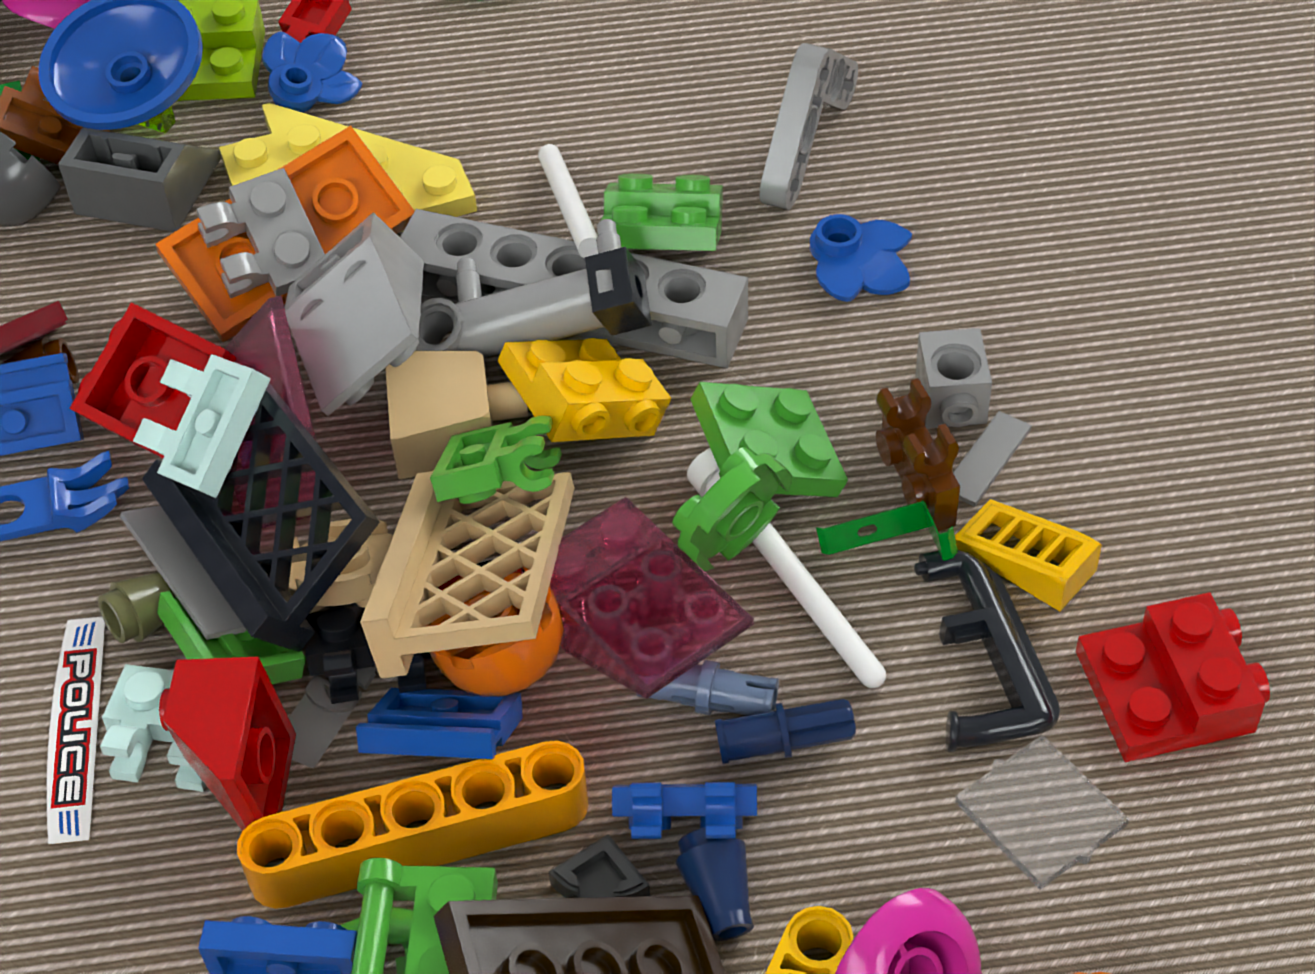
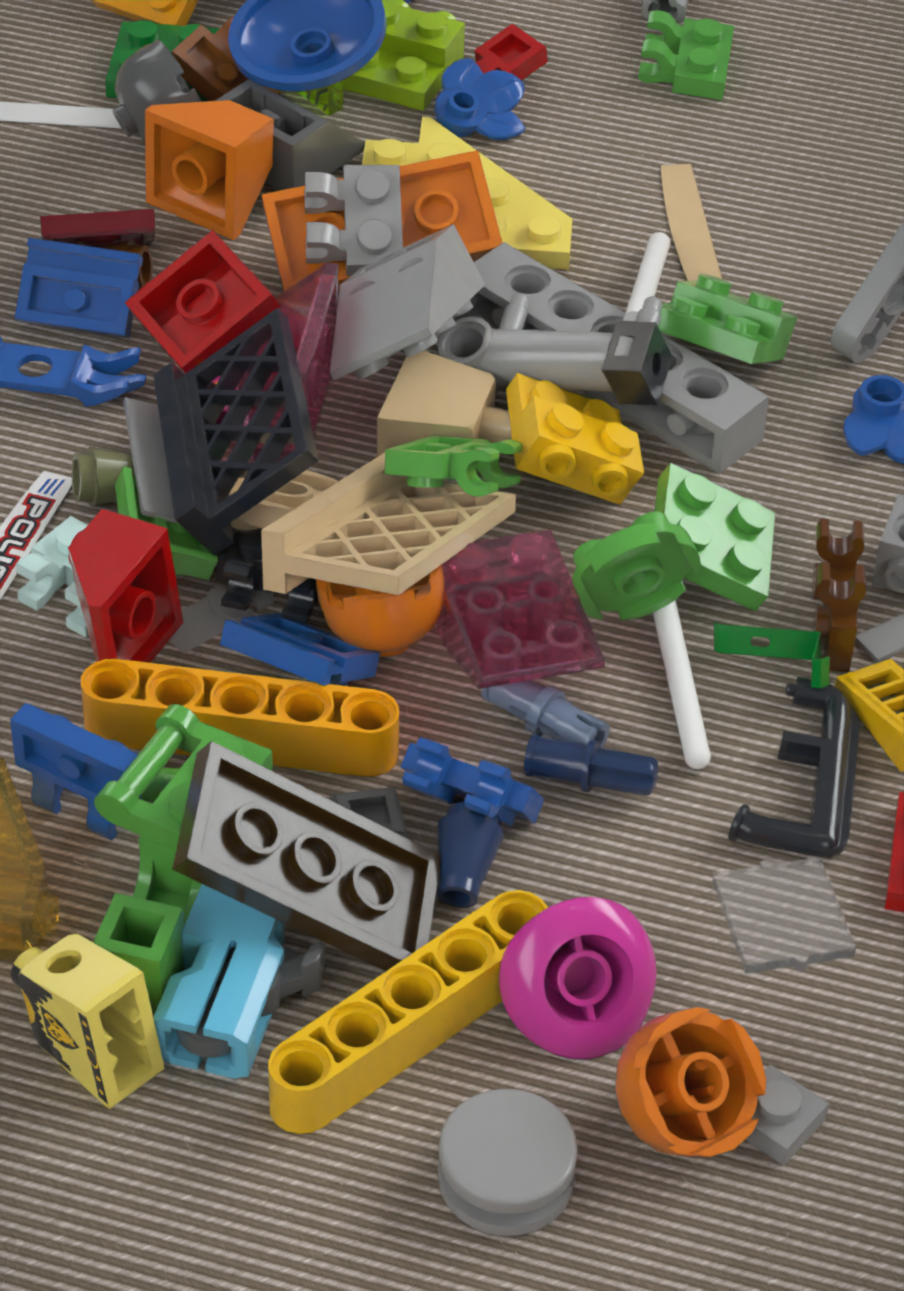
camera: 20 degrees right, 5 degrees down
(80, 227) = (207, 161): none -> orange slope
(212, 425) = (238, 331): light aqua plate -> none
(565, 128) = (688, 222): none -> tan sticker

